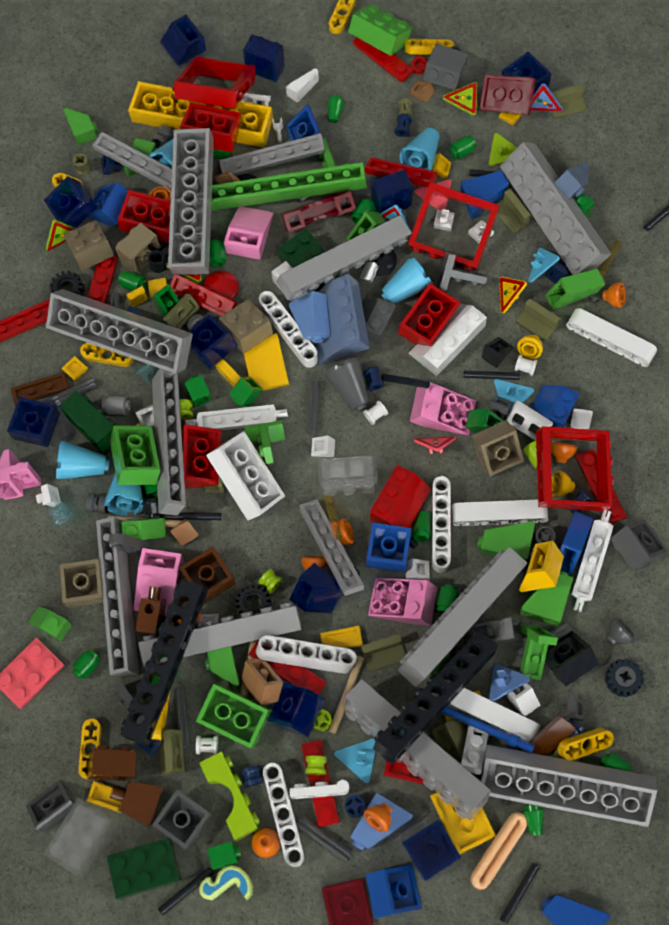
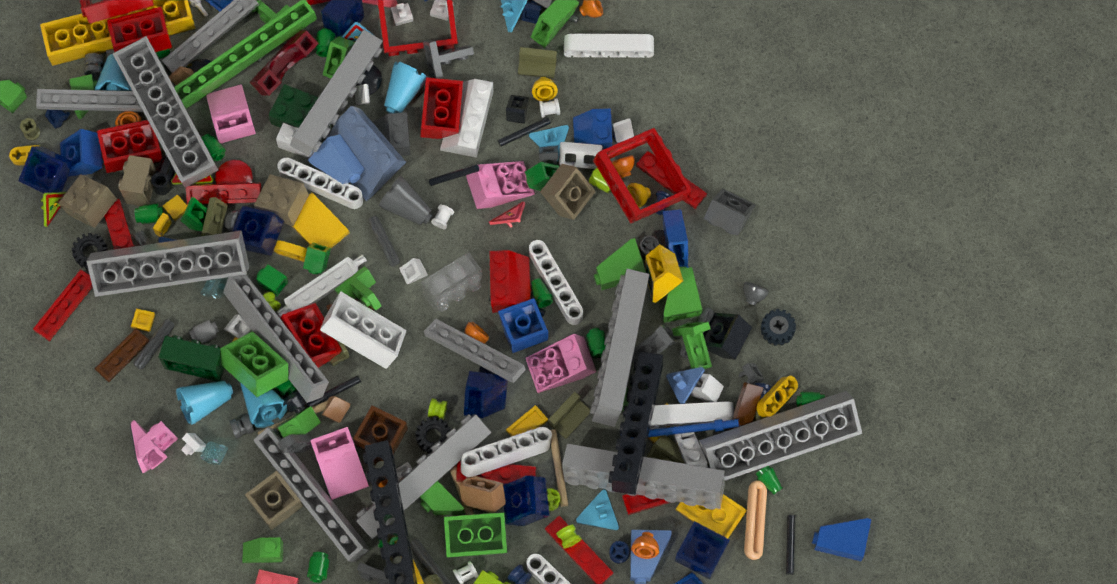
camera: 35 degrees left, 0 degrees up
(33, 422) = (138, 386): clear blue brick -> none
(93, 357) = (154, 301): yellow beam -> none
(149, 620) = (354, 498): reddish brown torso -> none
(308, 560) = (462, 374): orange brick -> none
(320, 789) = (584, 553): white plate -> none
(333, 517) = (460, 325): clear yellow bar -> none
(373, 378) = (423, 188): dark blue bush -> none
(417, 569) = (557, 331): white slope -> none
(498, 512) = (597, 246): white beam -> none
(509, 292) = (498, 49): piece -> none
(592, 560) = (699, 245): white plate -> none

